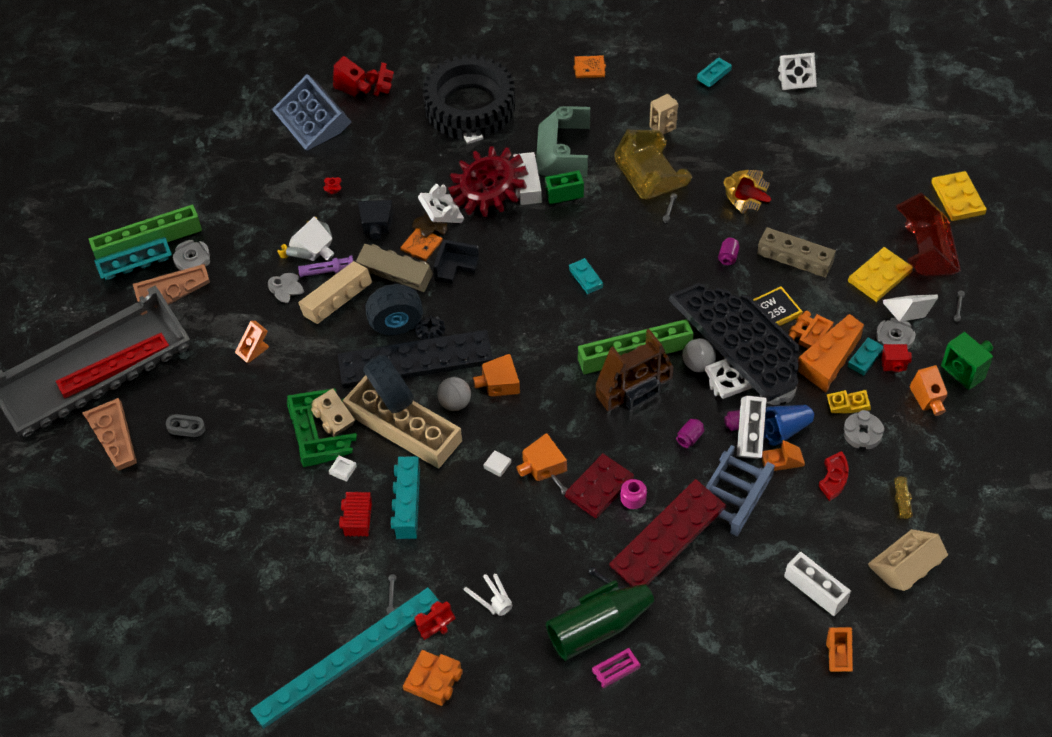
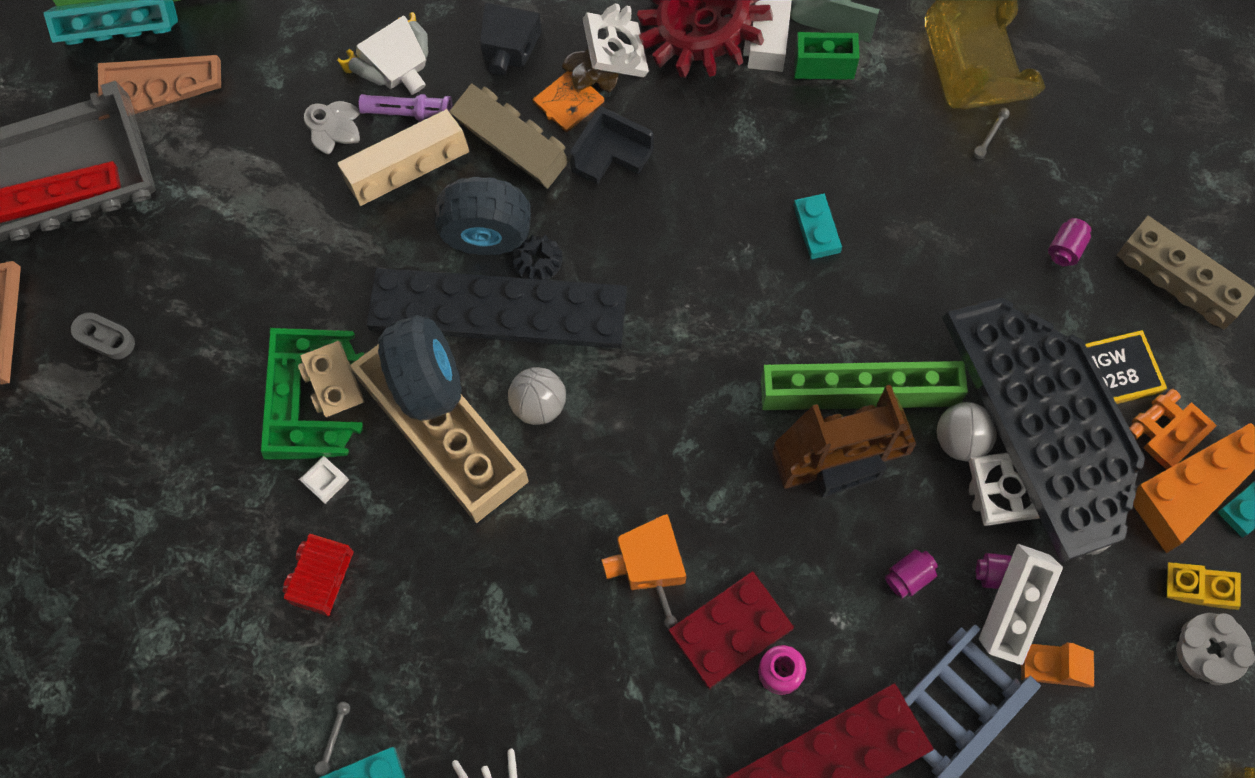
camera: 15 degrees right, 15 degrees up
(198, 250) = (203, 19): light grey plate -> none
(252, 342) = (249, 214): orange slope -> none
(407, 498) = (406, 568): teal brick -> none
(497, 463) = (574, 540): white tile -> none
(498, 377) = (619, 380): orange torso -> none
(744, 187) = (1132, 126): piece -> none
(785, 421) = (1085, 602): blue cone -> none
(836, 475) = (1143, 726): red tile -> none

